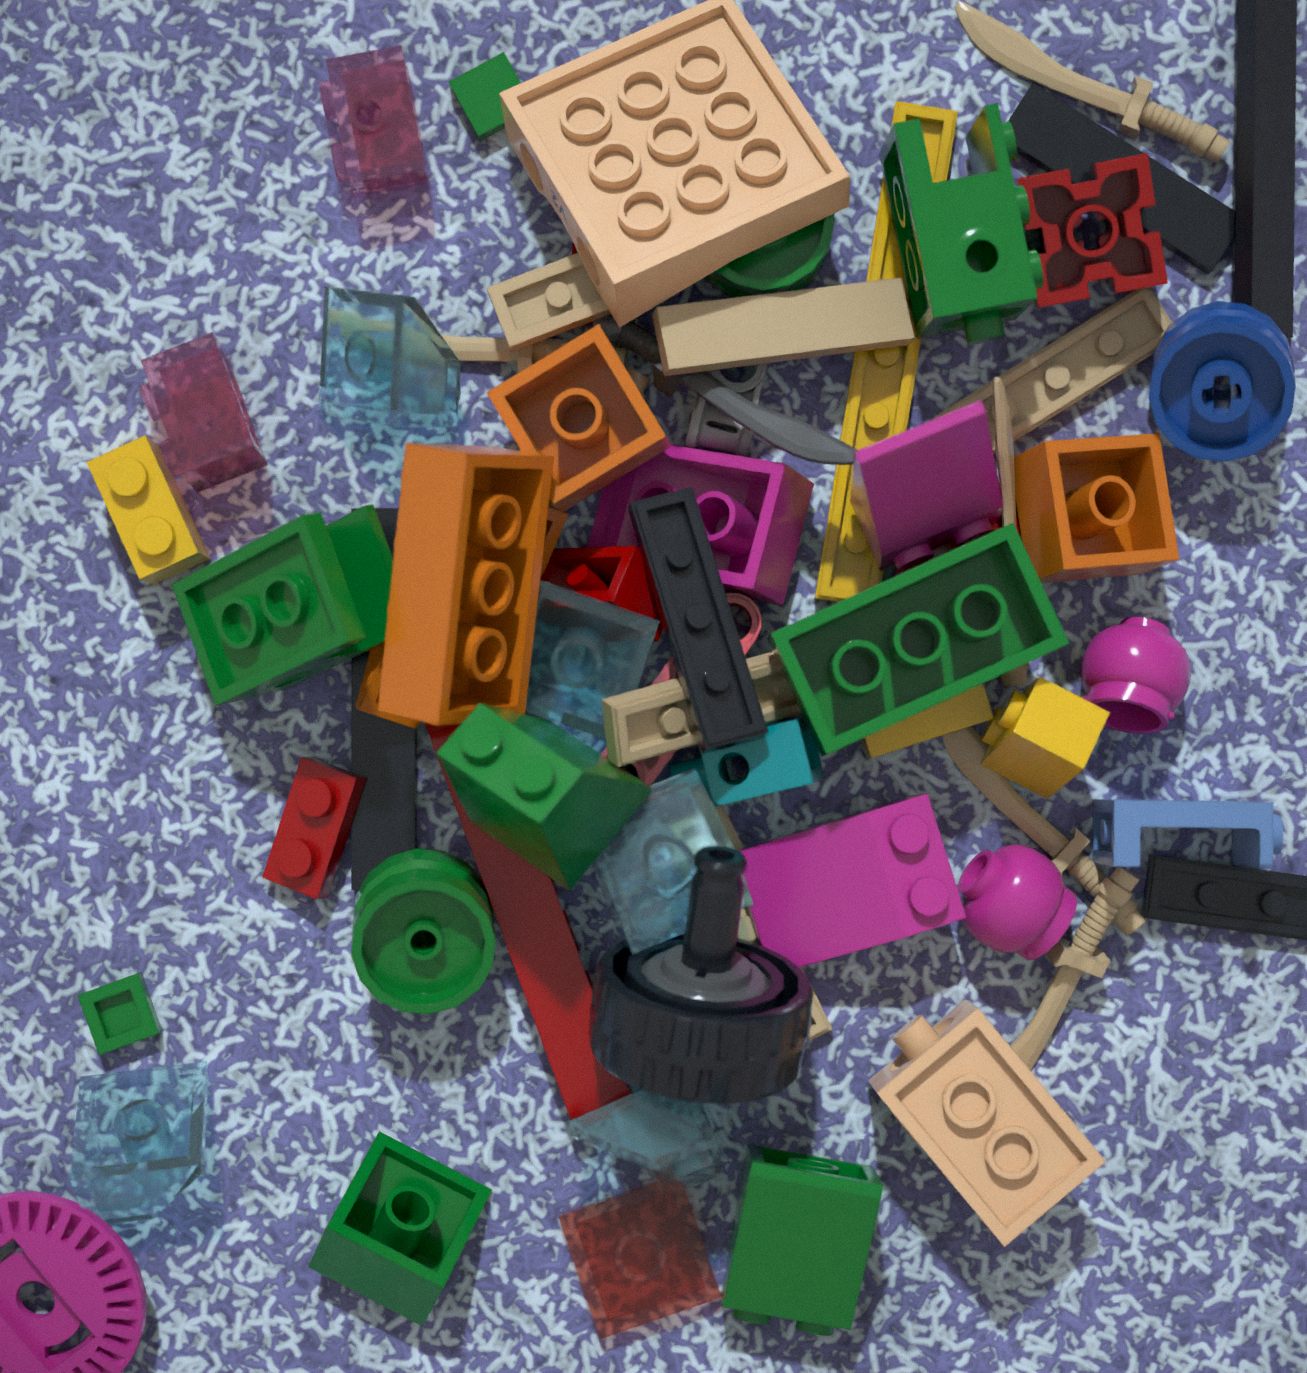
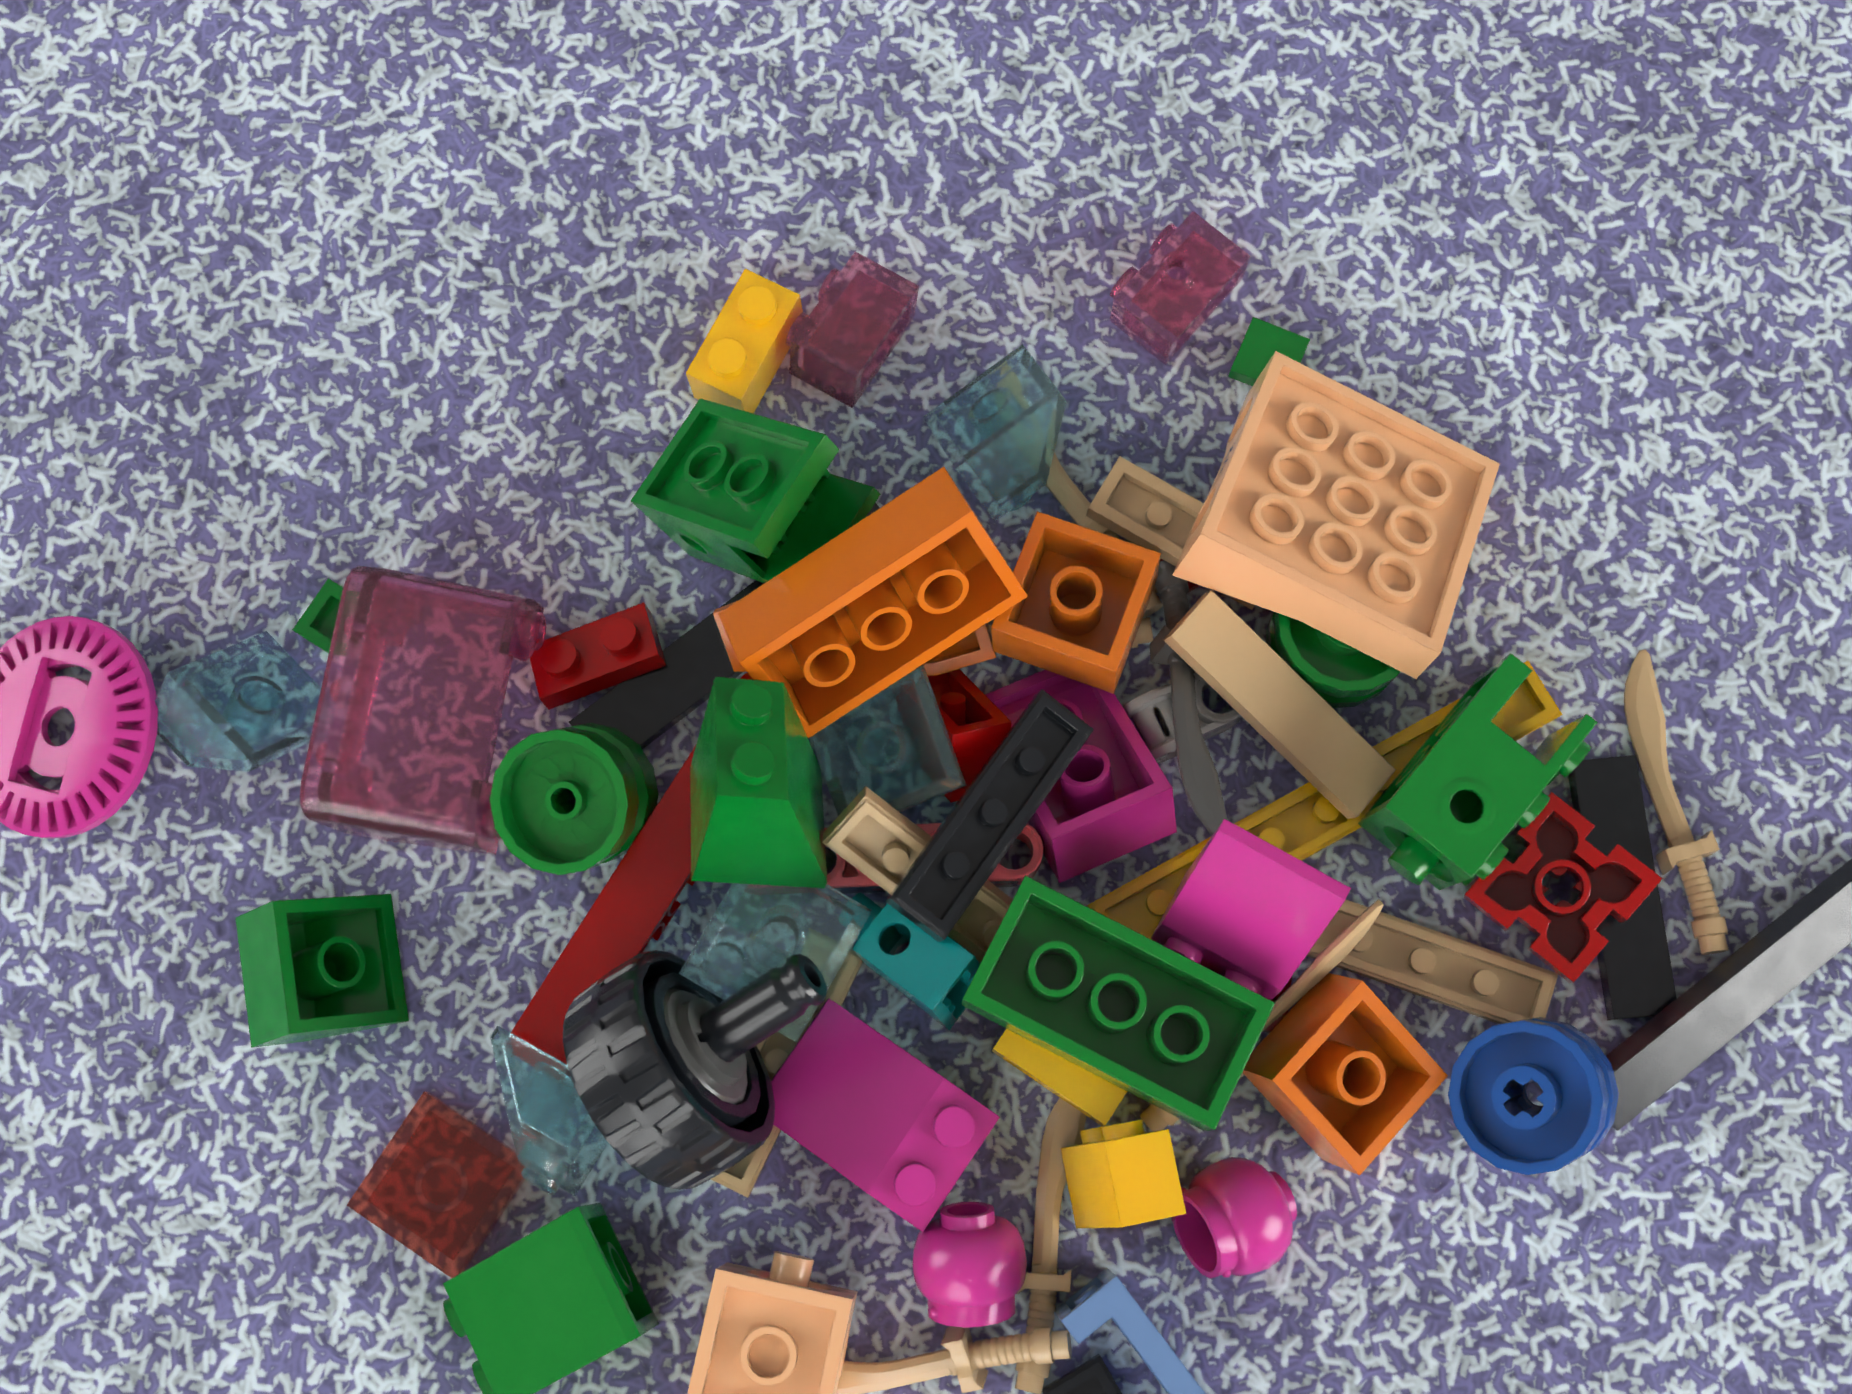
camera: 55 degrees right, 10 degrees down
(251, 1000) = (415, 709): none -> clear pink windscreen

